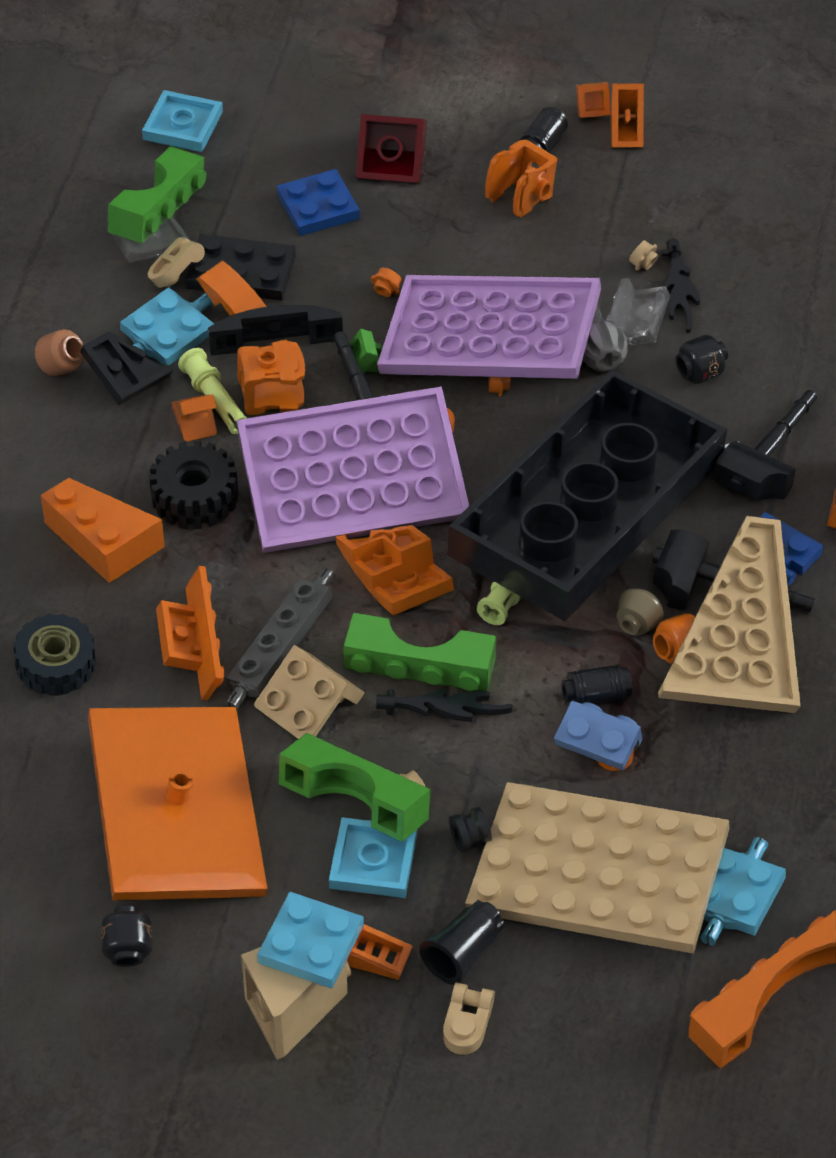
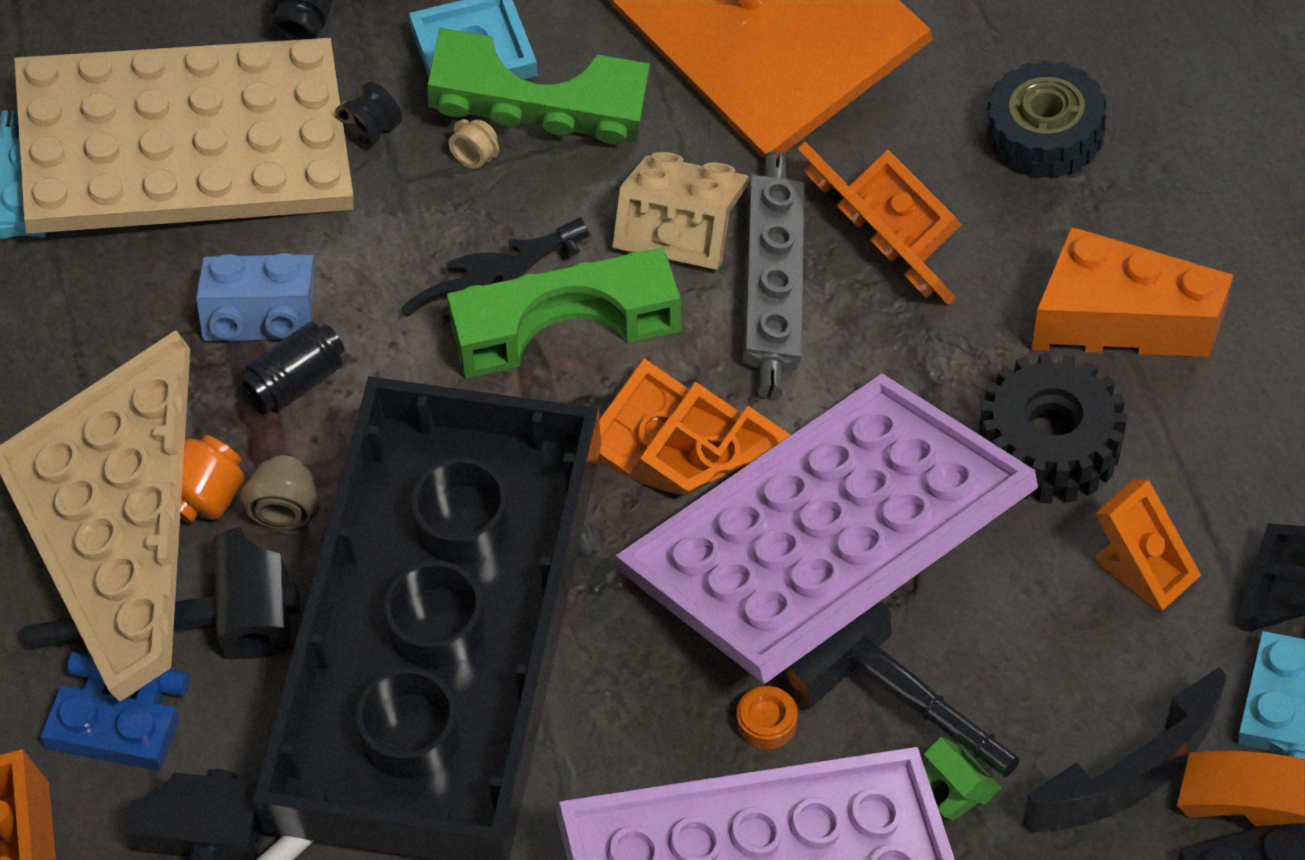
camera: 155 degrees right, 5 degrees up
(207, 381) = (1169, 619): yellowish green pin -> none
(271, 377) = (1064, 641): orange piece -> none

